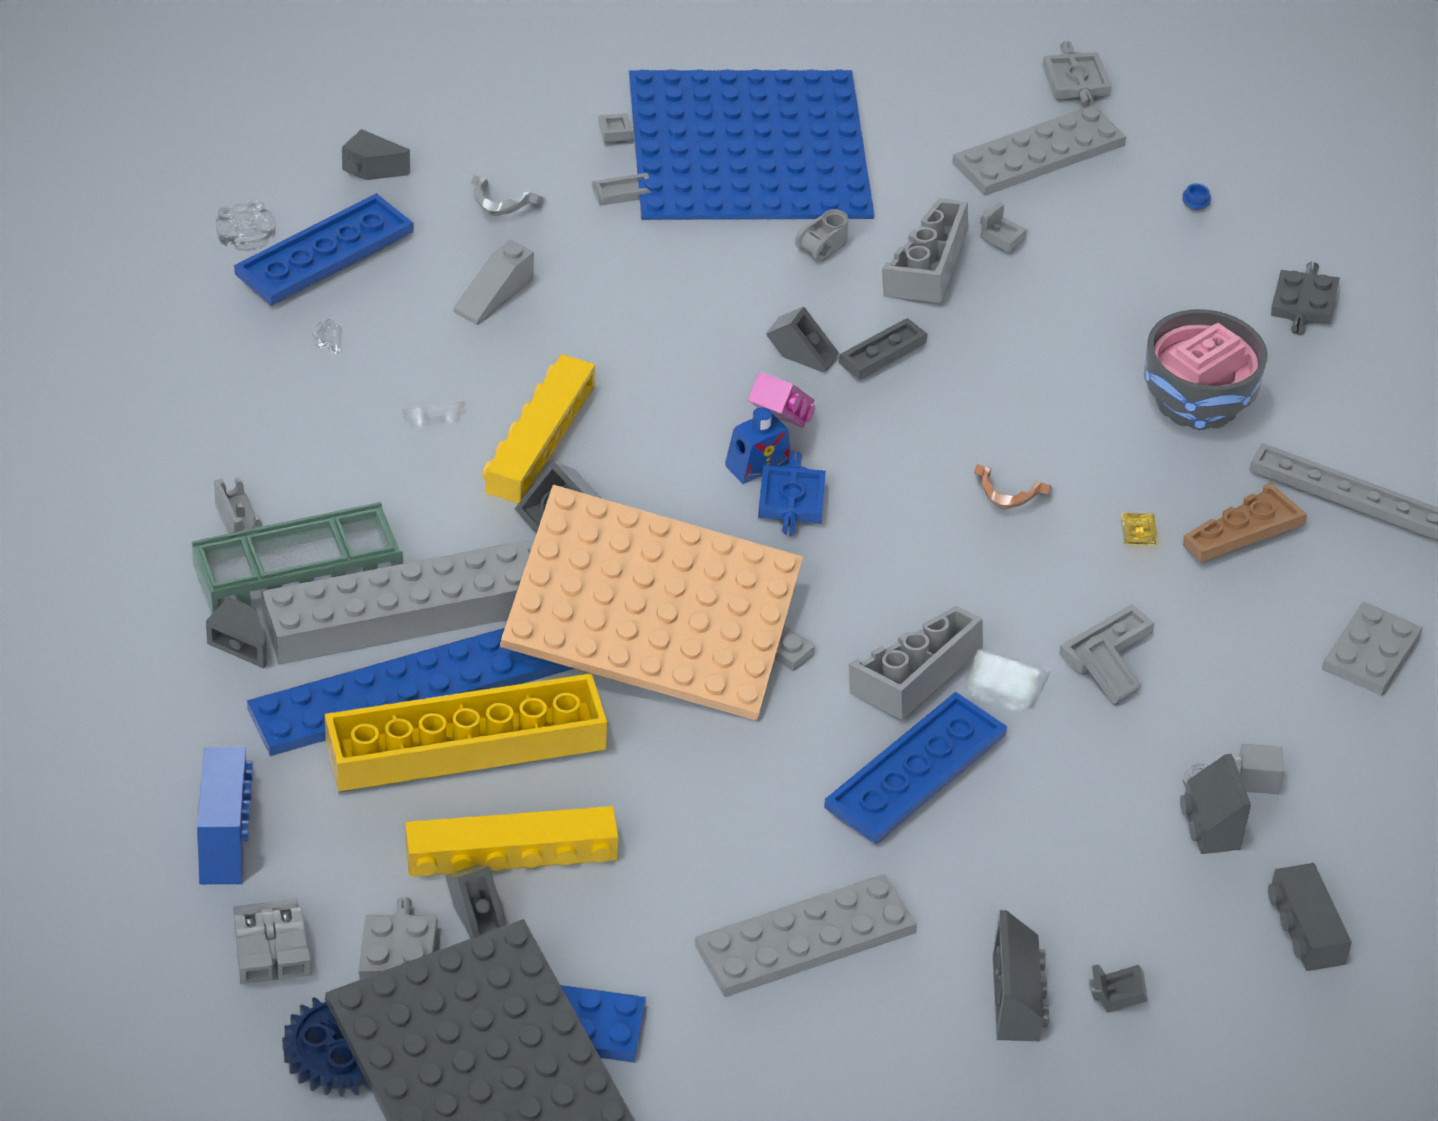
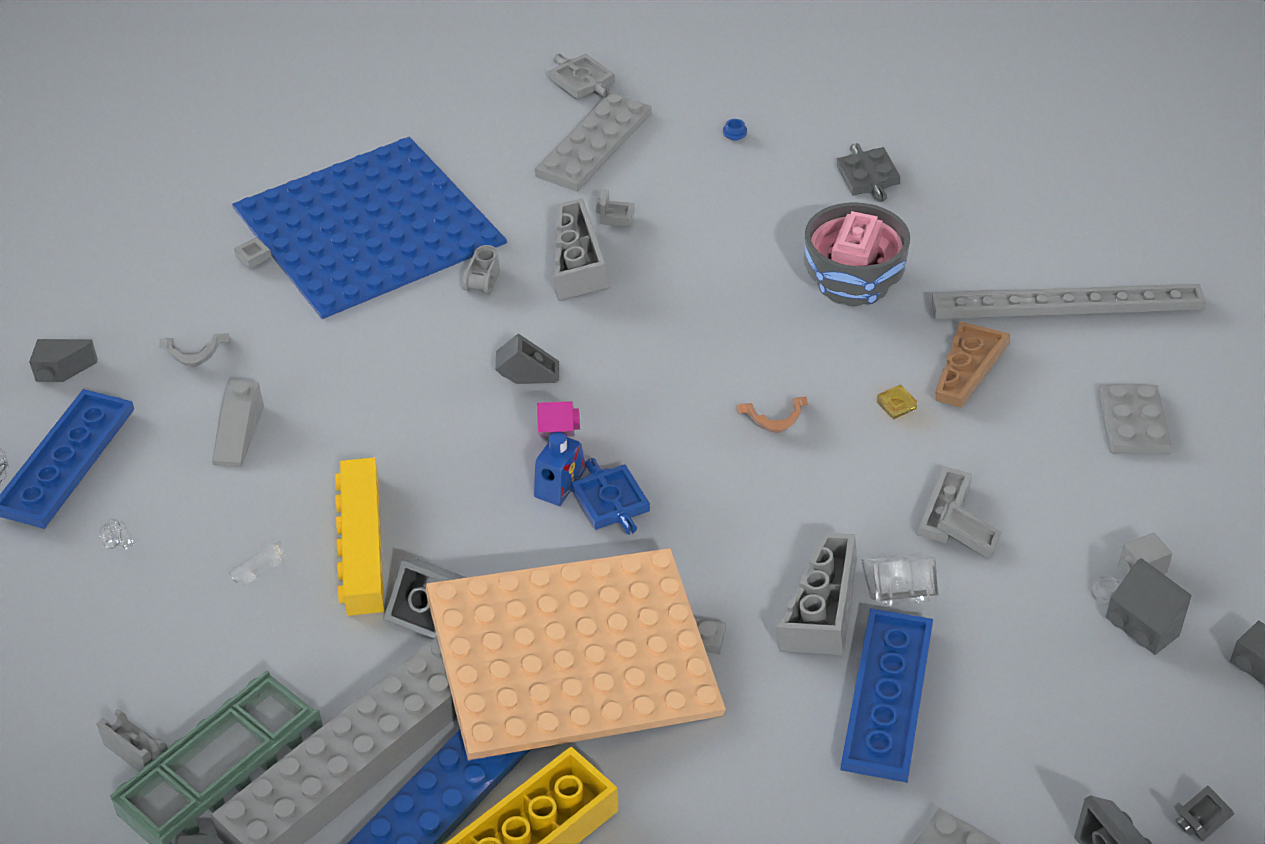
camera: 25 degrees left, 0 degrees up
(619, 189) = (287, 301): light grey tile -> none
(883, 348) = (593, 342): dark grey plate -> none

